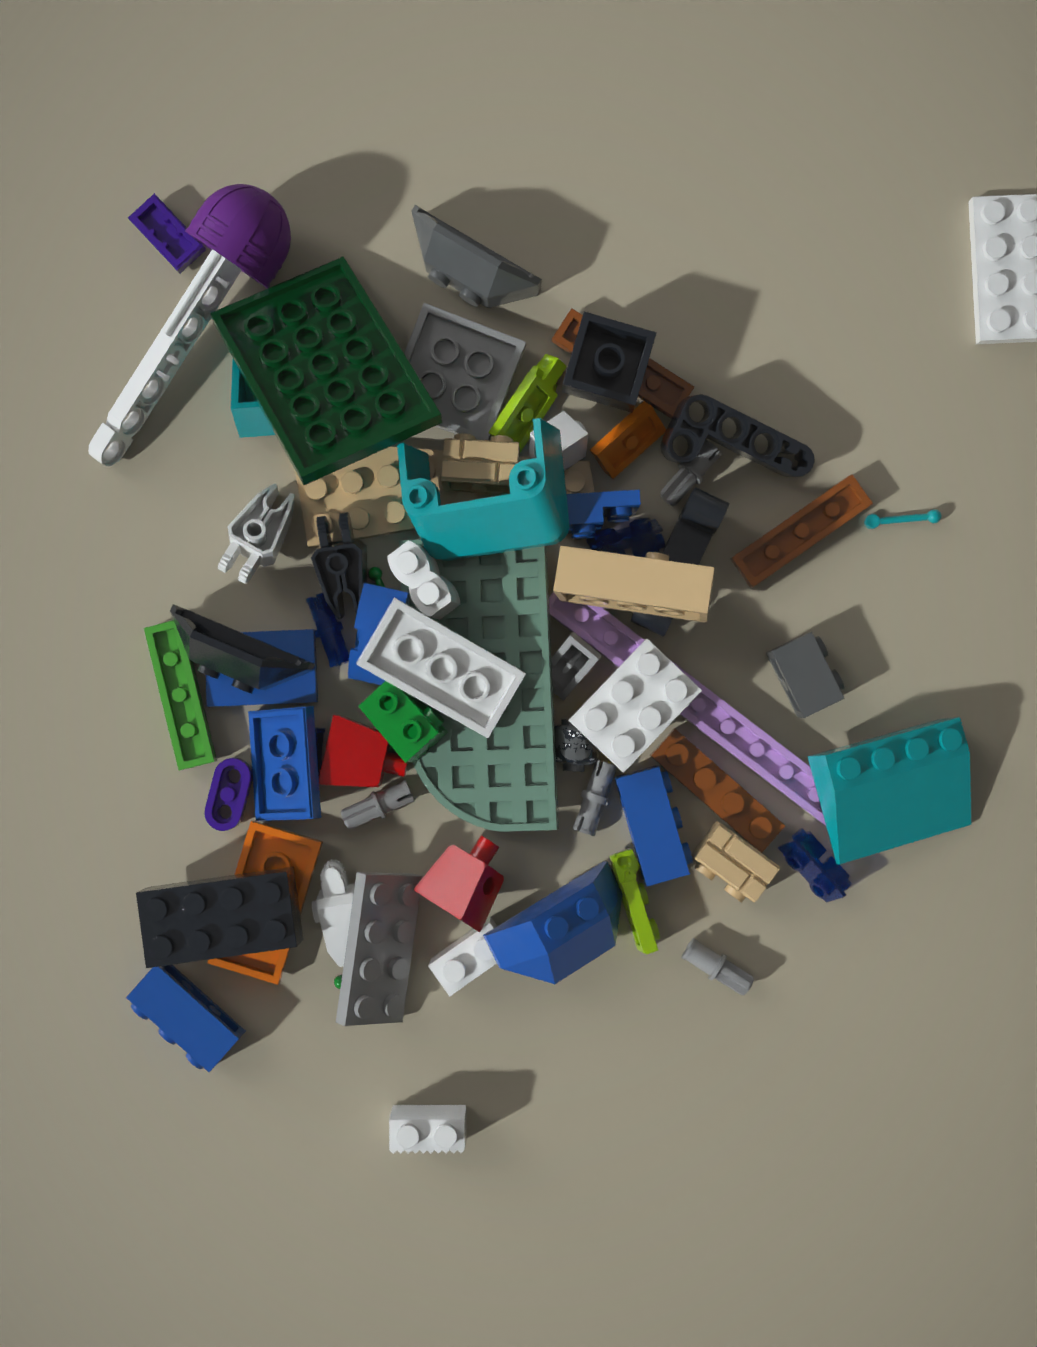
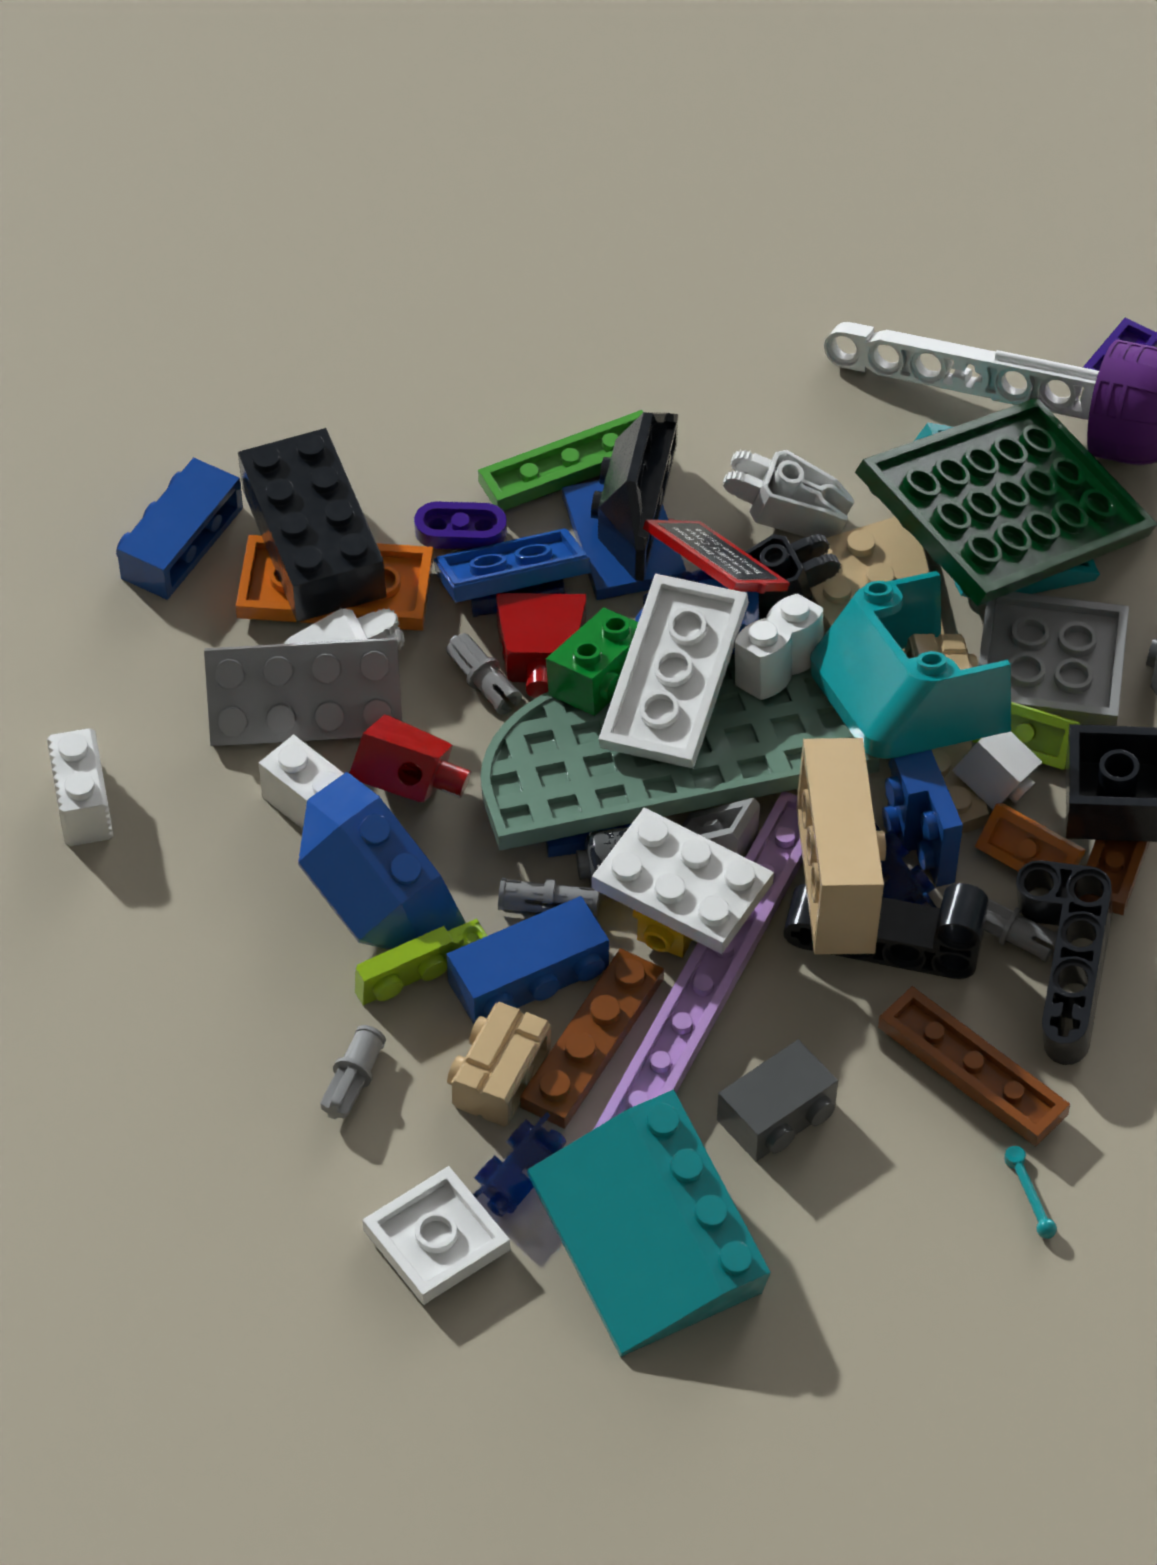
camera: 75 degrees right, 35 degrees down
(332, 609) = (716, 555): none -> piece
(861, 933) = (436, 1235): none -> white plate

